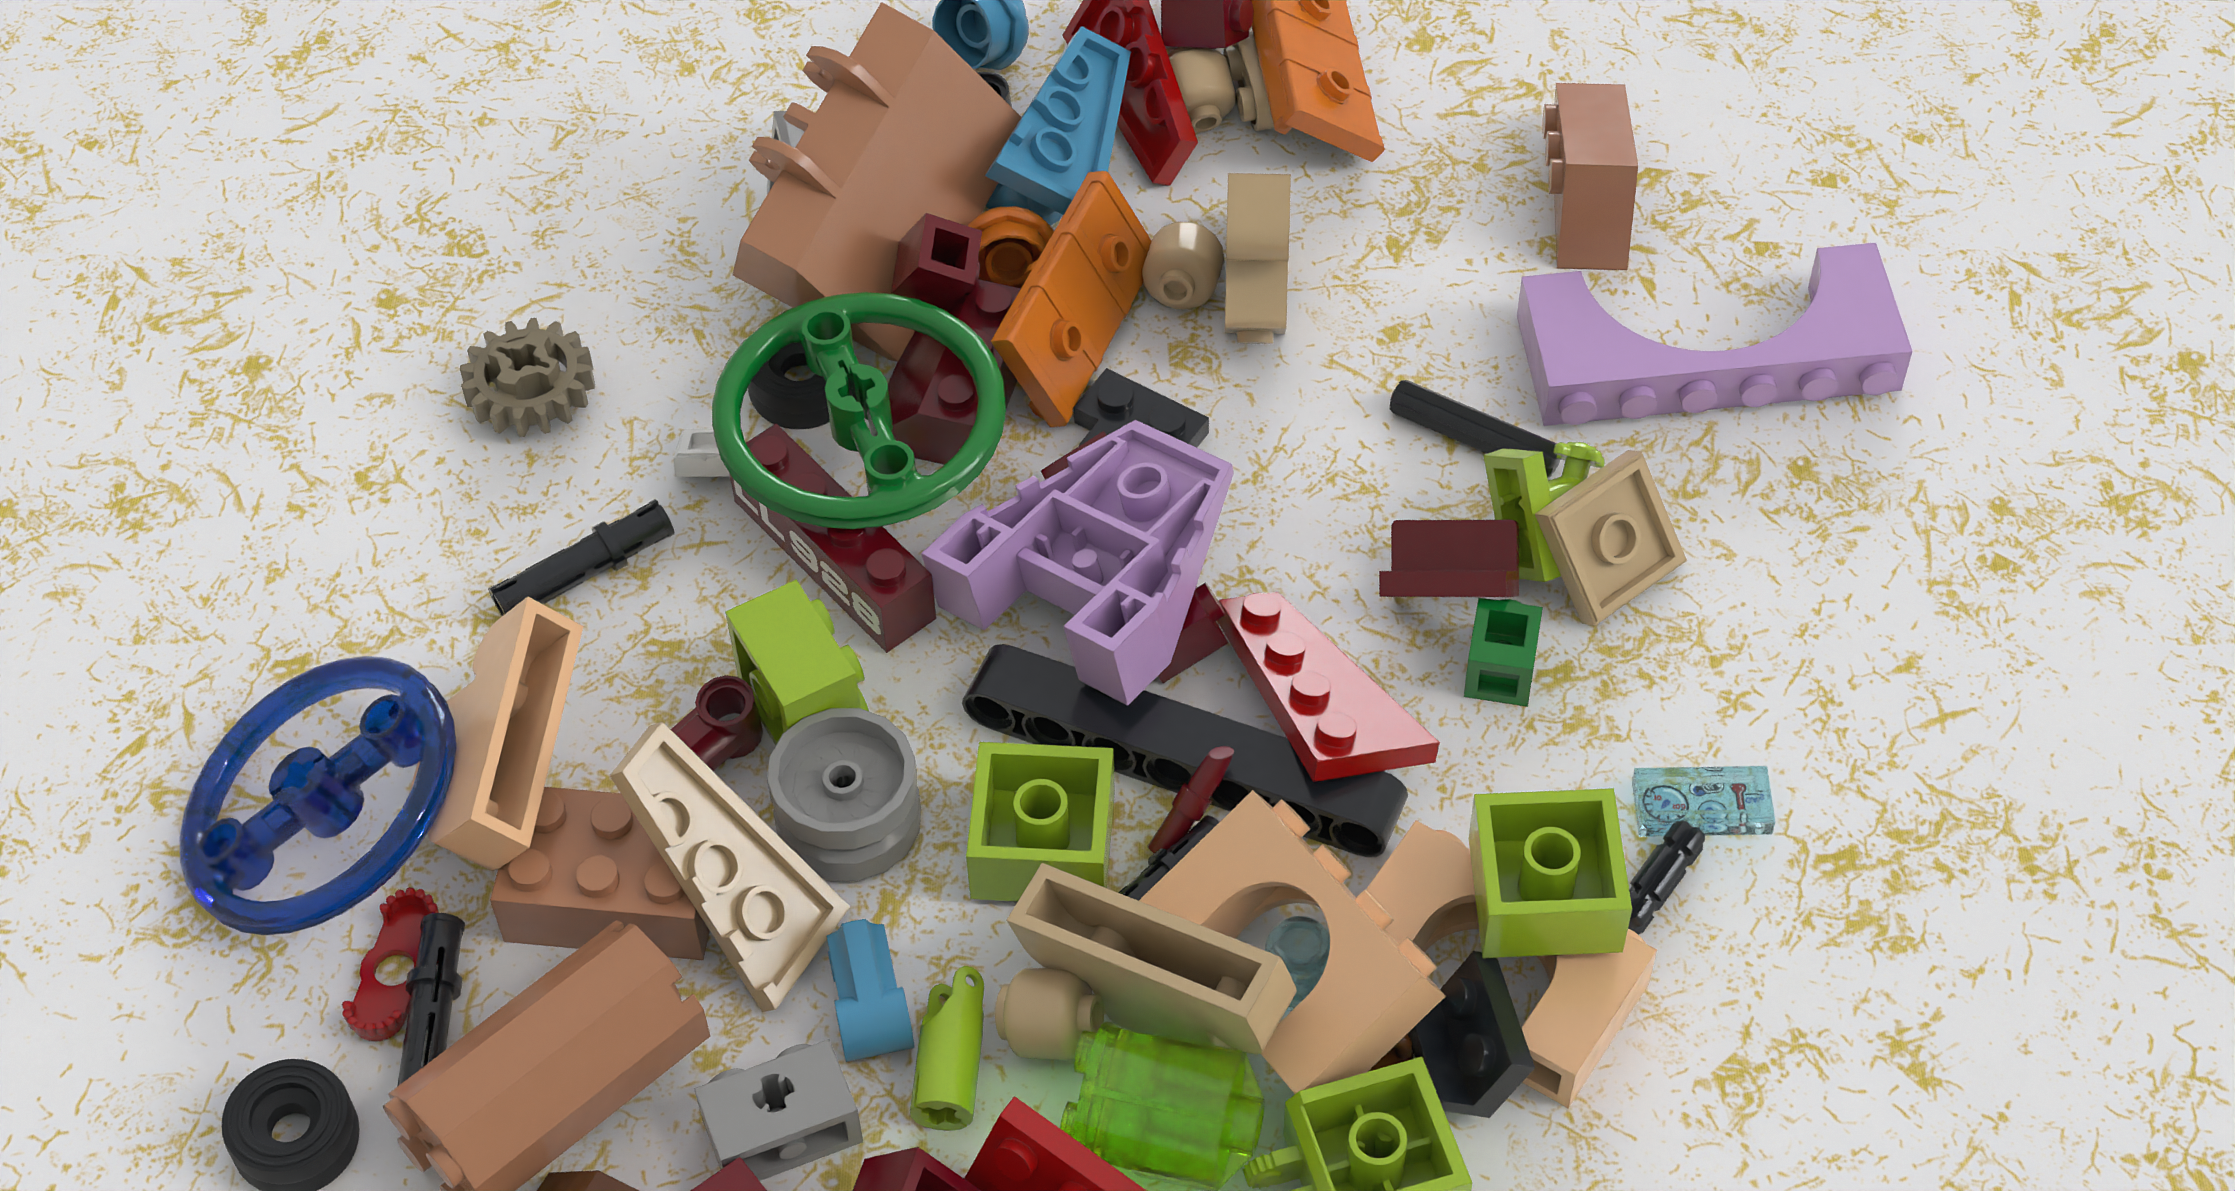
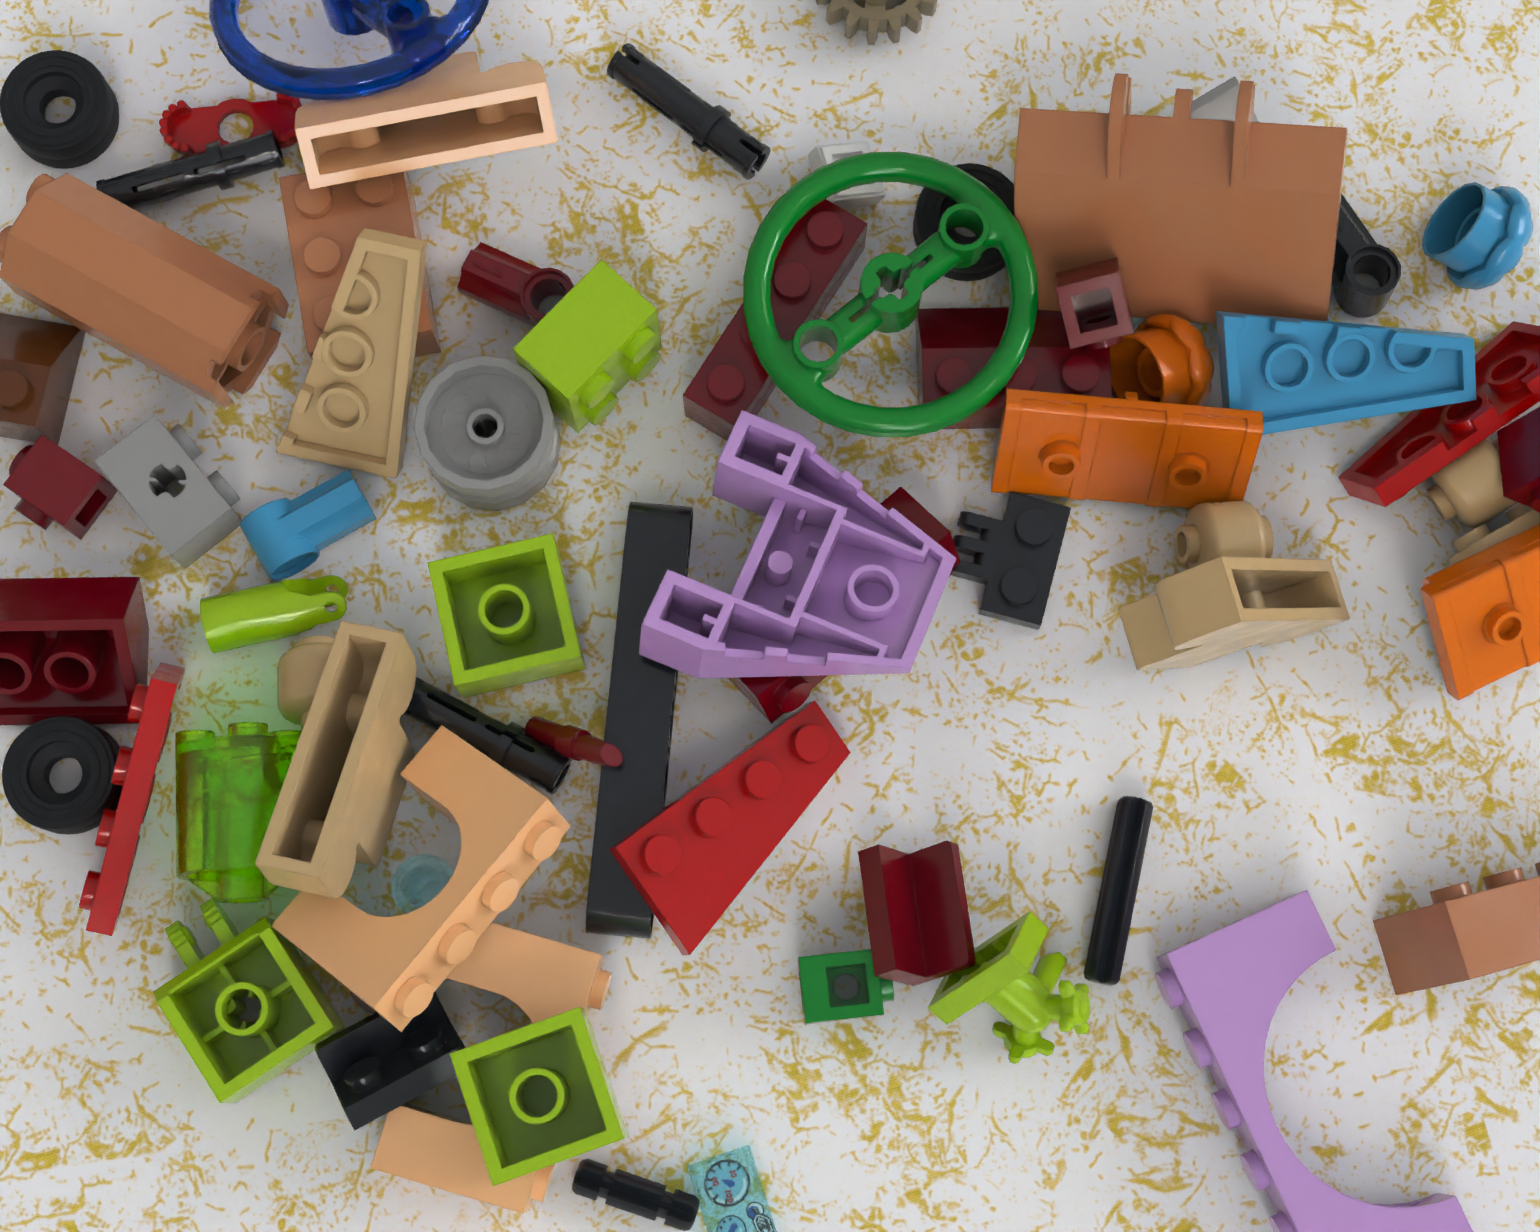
camera: 70 degrees right, 25 degrees up
(1611, 537) = (998, 1061): tan tile -> none

